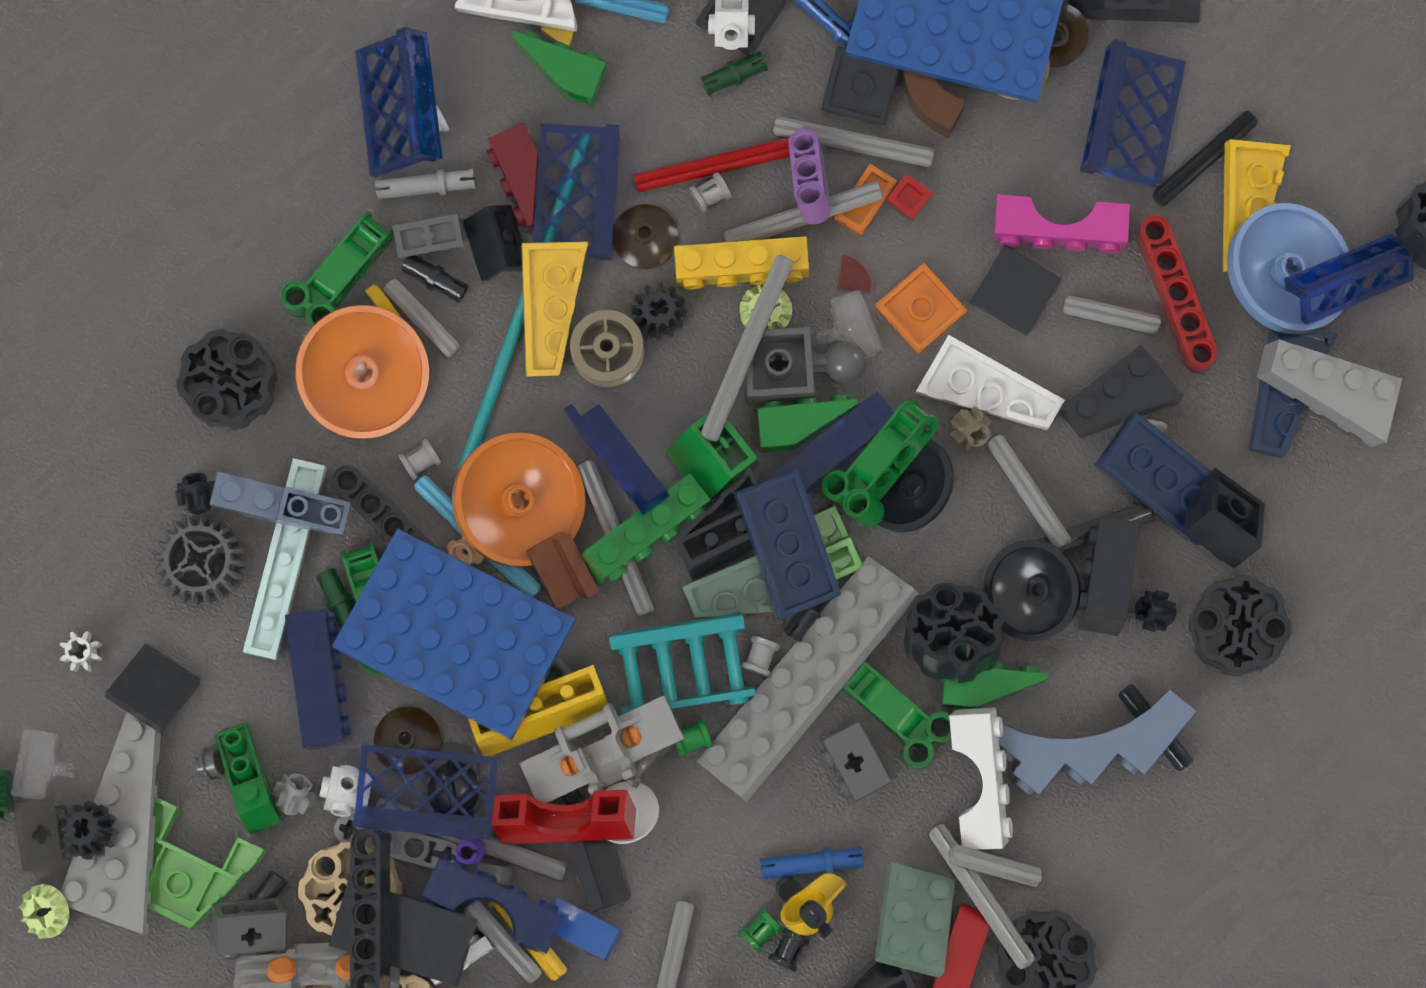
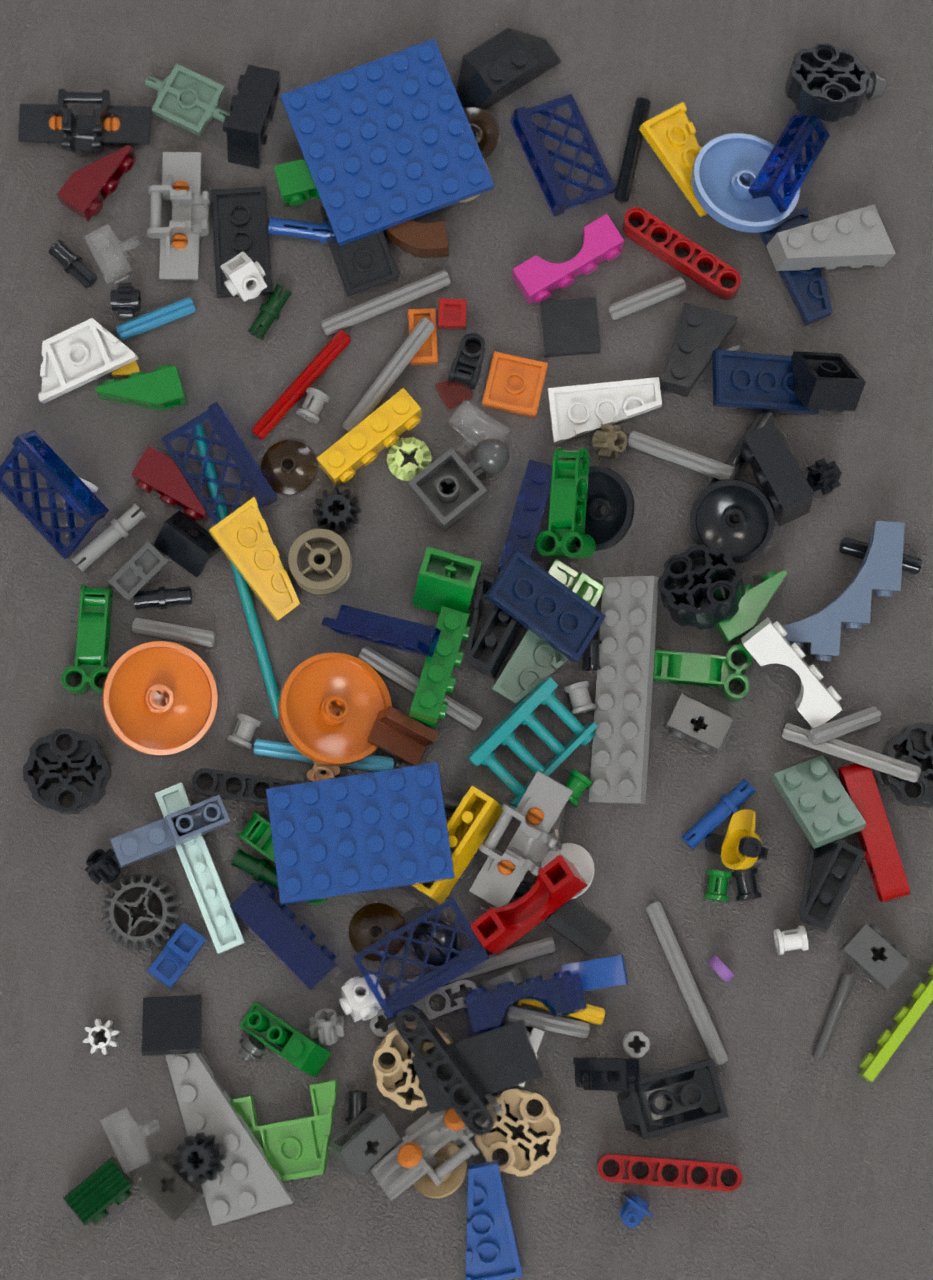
camera: 40 degrees left, 0 degrees up
(53, 922) = (201, 1228): yellowish green gear -> none
(204, 627) = (176, 955): none -> blue slope
(380, 299) = (134, 639): yellow tile -> none
(464, 856) = (482, 982): dark purple pin -> none
(746, 348) = (419, 492): light grey axle -> none
(793, 425) = (485, 526): green slope -> none
(809, 176) = (375, 345): medium lavender beam -> none
(888, 255) = (466, 365): none -> black piece
(1214, 604) = (869, 439): black connector -> none

